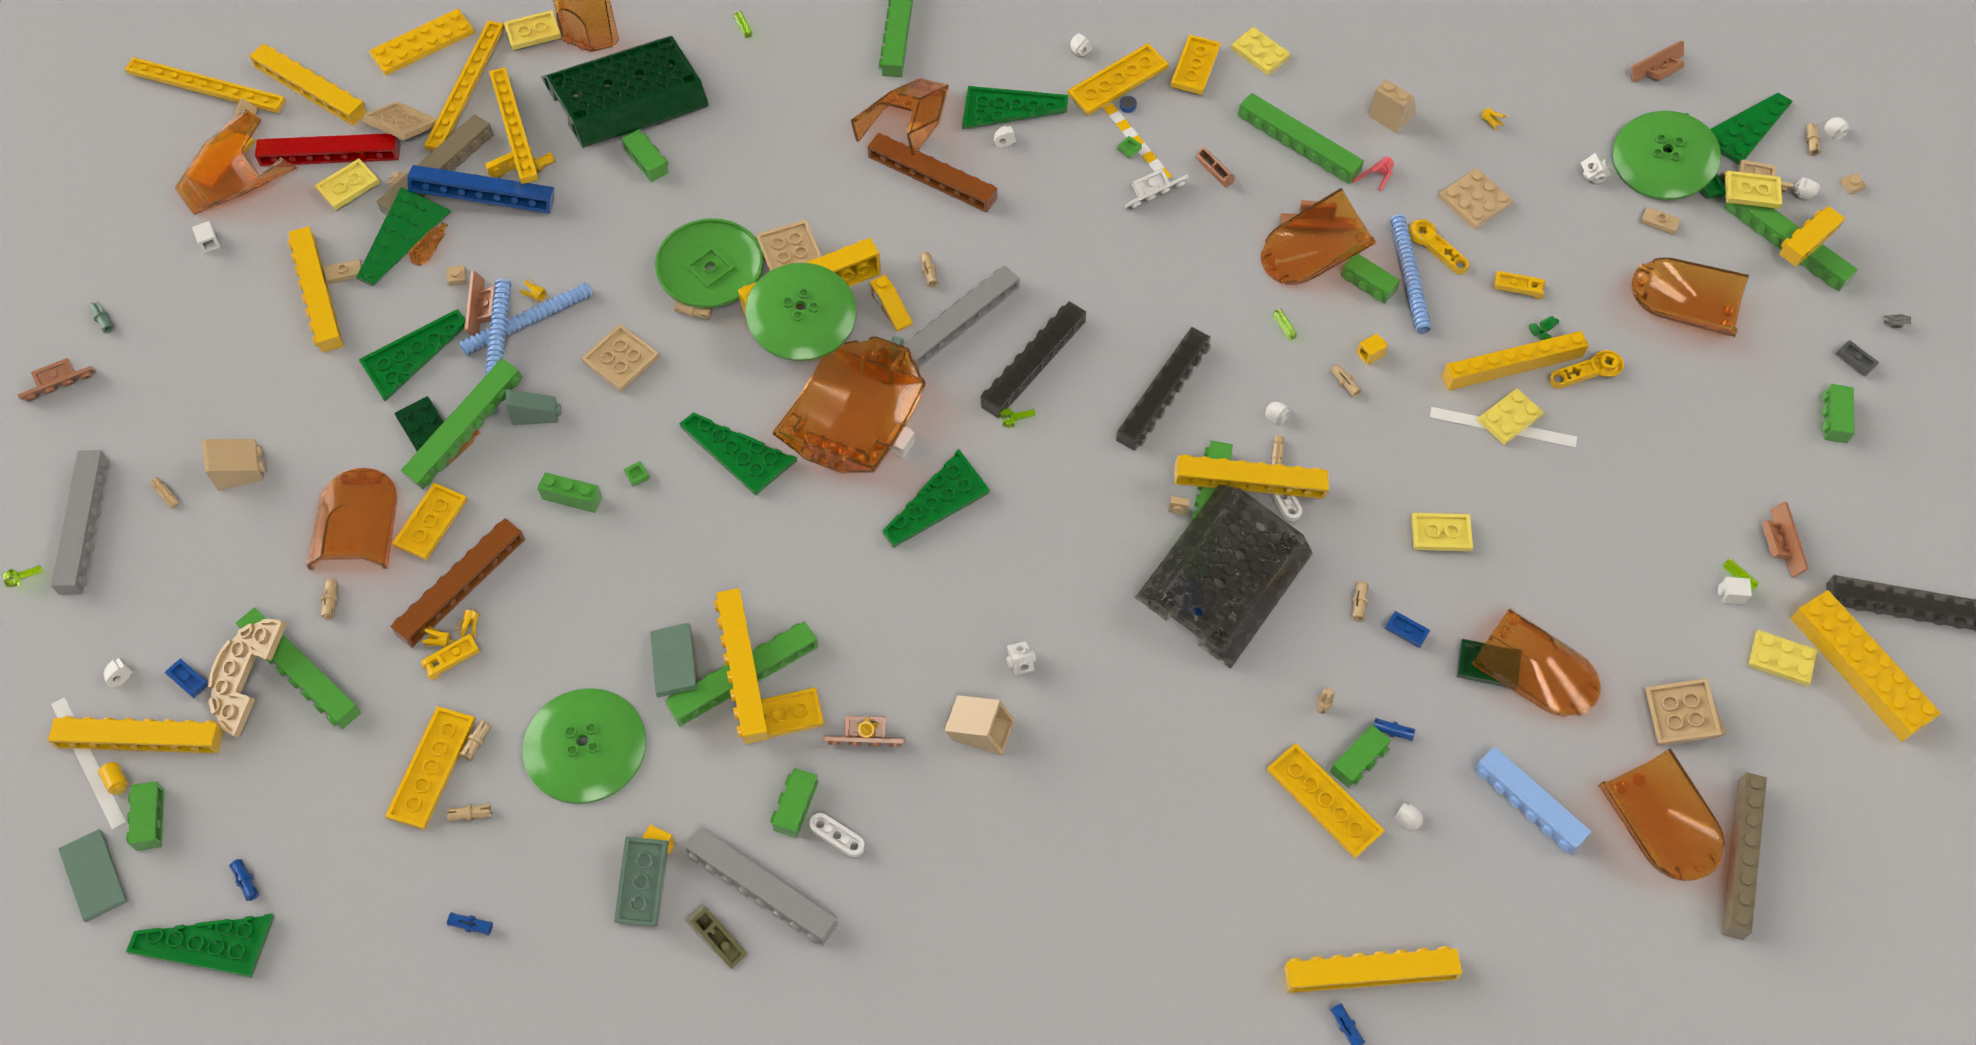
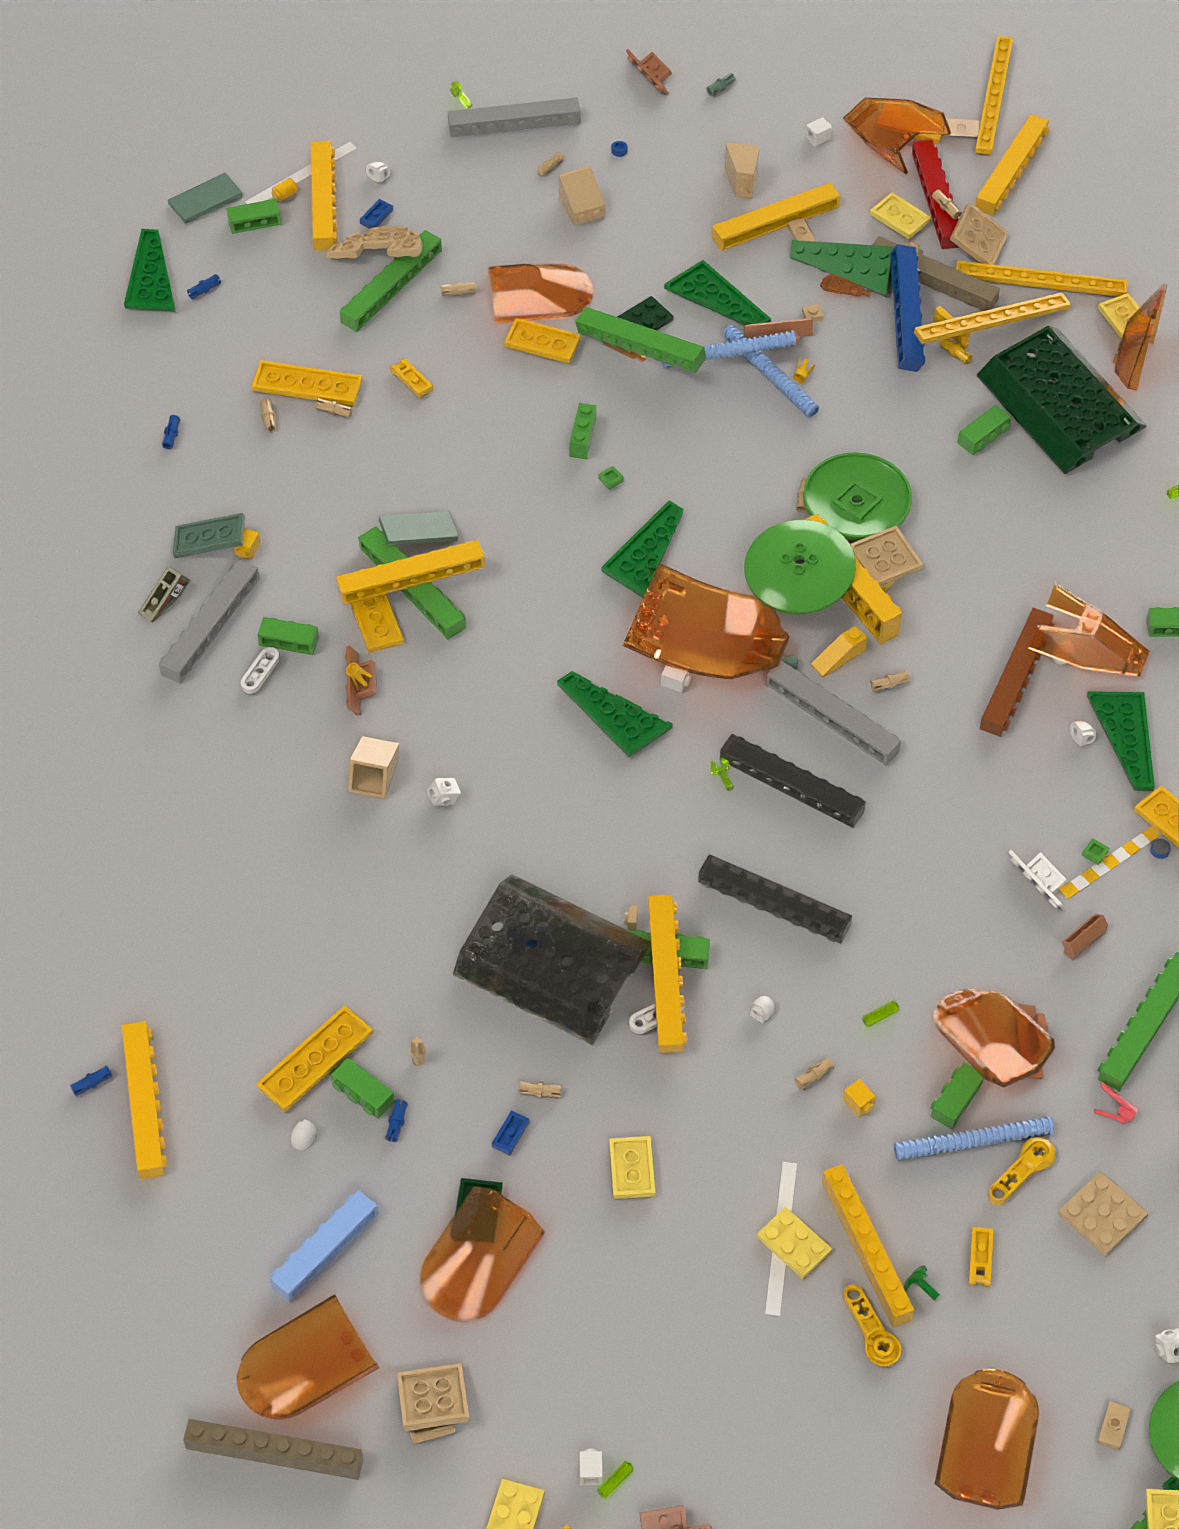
camera: 85 degrees right, 5 degrees down
(163, 423) = (619, 148): none -> blue tile
(242, 306) = (742, 167): none -> tan slope
(354, 137) = (946, 204): none -> tan pin
(421, 41) = (1091, 238): yellow plate -> none
(437, 638) = (427, 369): yellow piece -> none
(457, 582) = (483, 370): dark orange brick -> none
(469, 617) = (446, 384): yellow piece -> none
(531, 408) = (667, 386): sand green slope -> none
(588, 771) = (340, 502): bright green dish -> none
(620, 357) = (738, 447): tan plate -> none
(1278, 448) = (712, 1010): tan axle -> none

